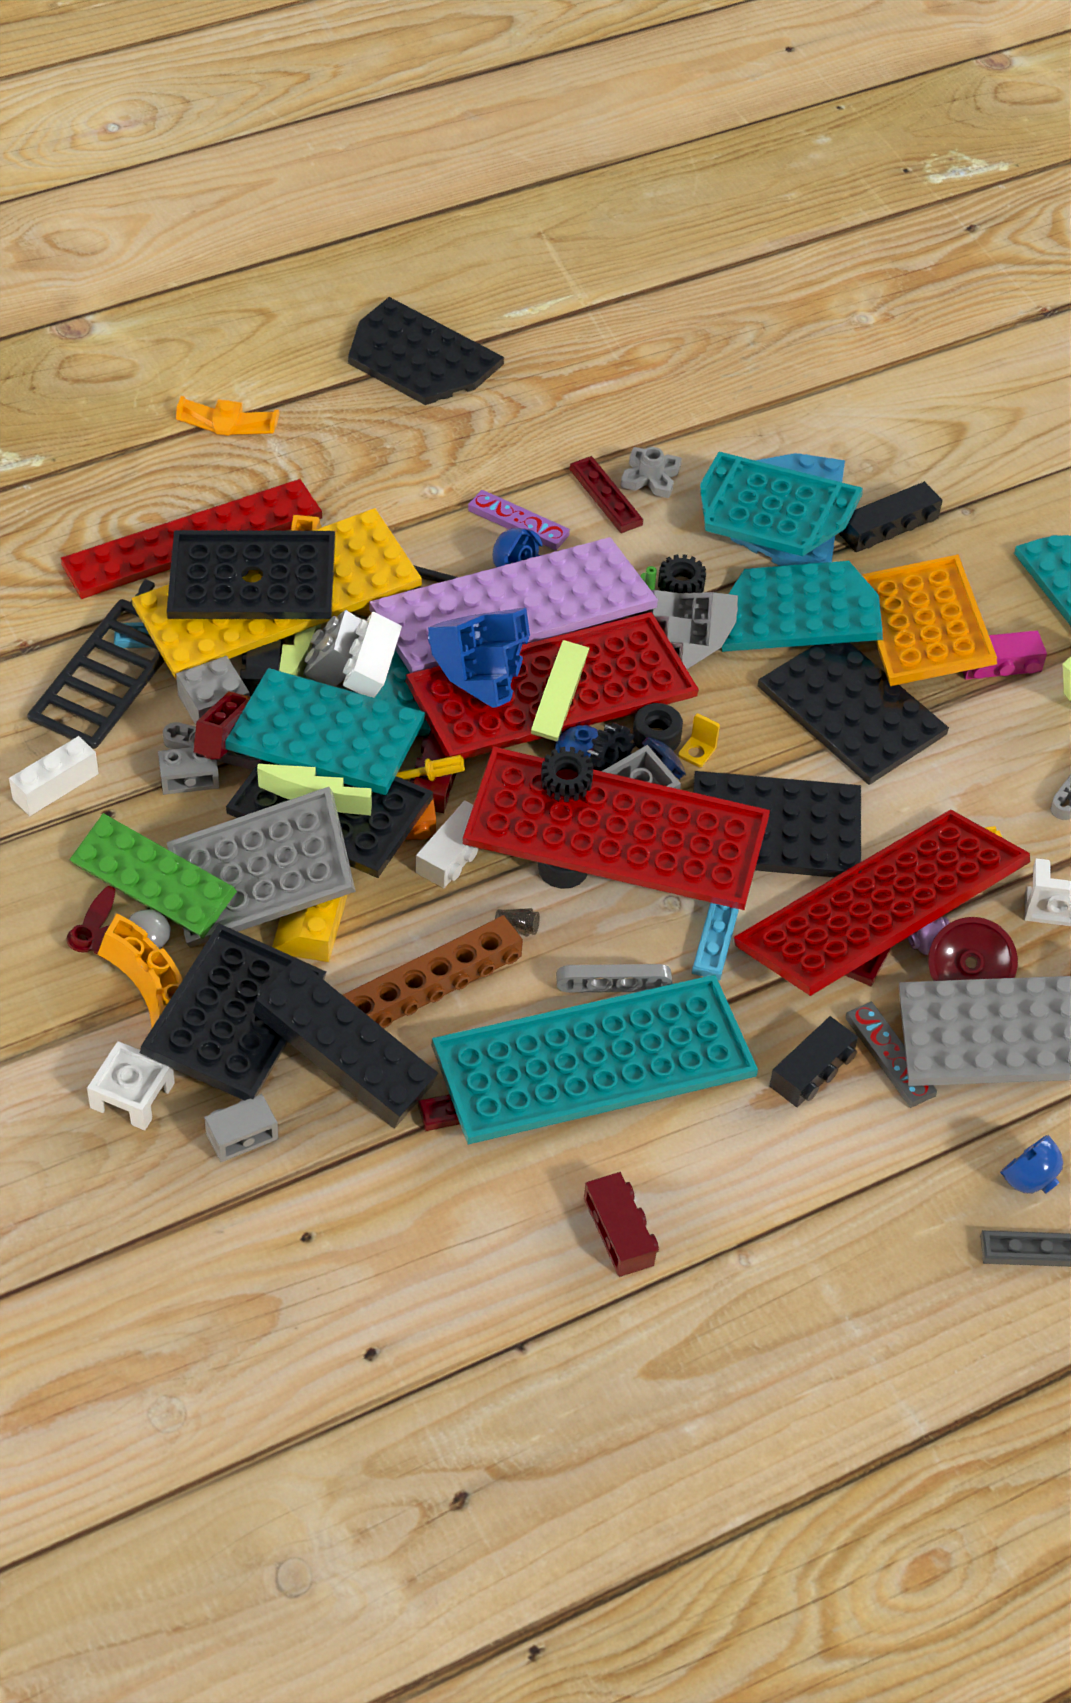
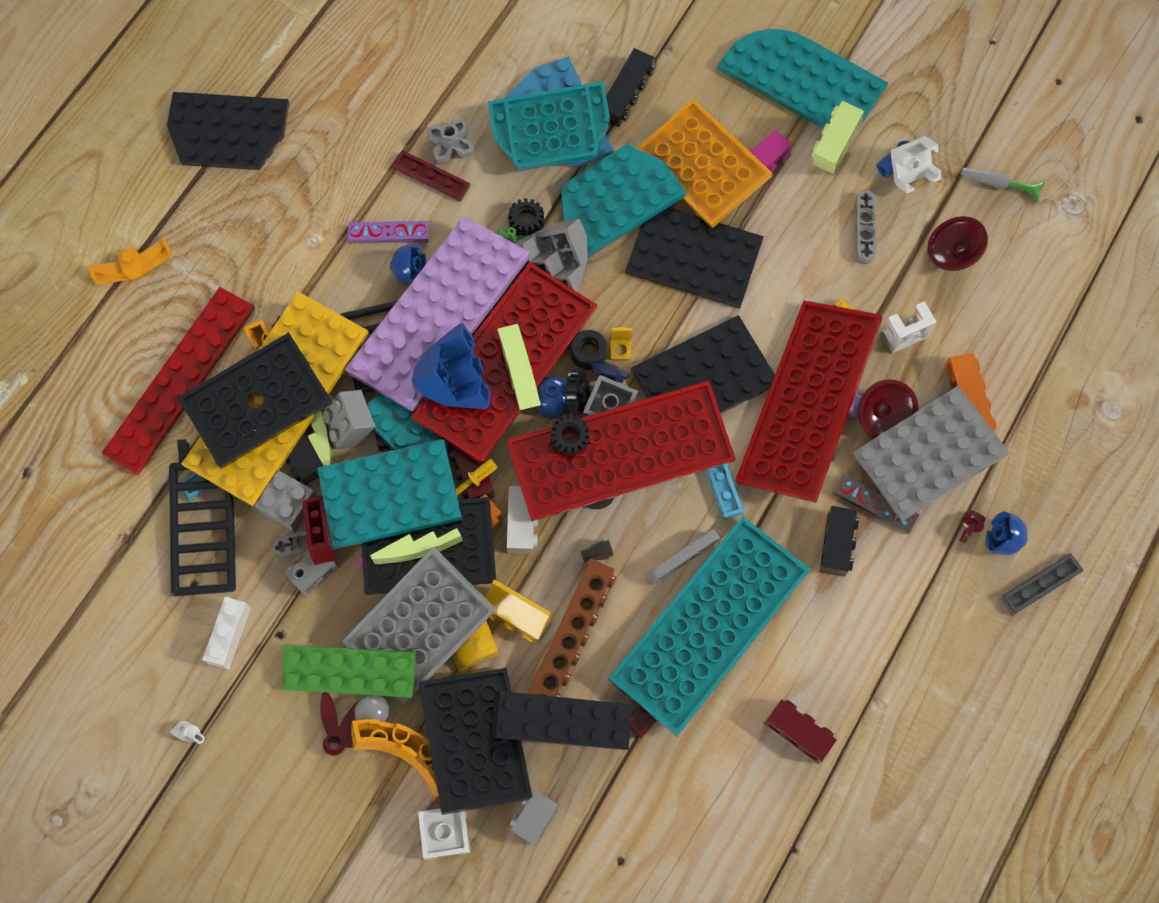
camera: 30 degrees left, 20 degrees up
(371, 655) = (380, 417): white brick -> none
(379, 921) = (518, 612): none -> yellow slope
(999, 1136) = (973, 523): none -> dark red piece

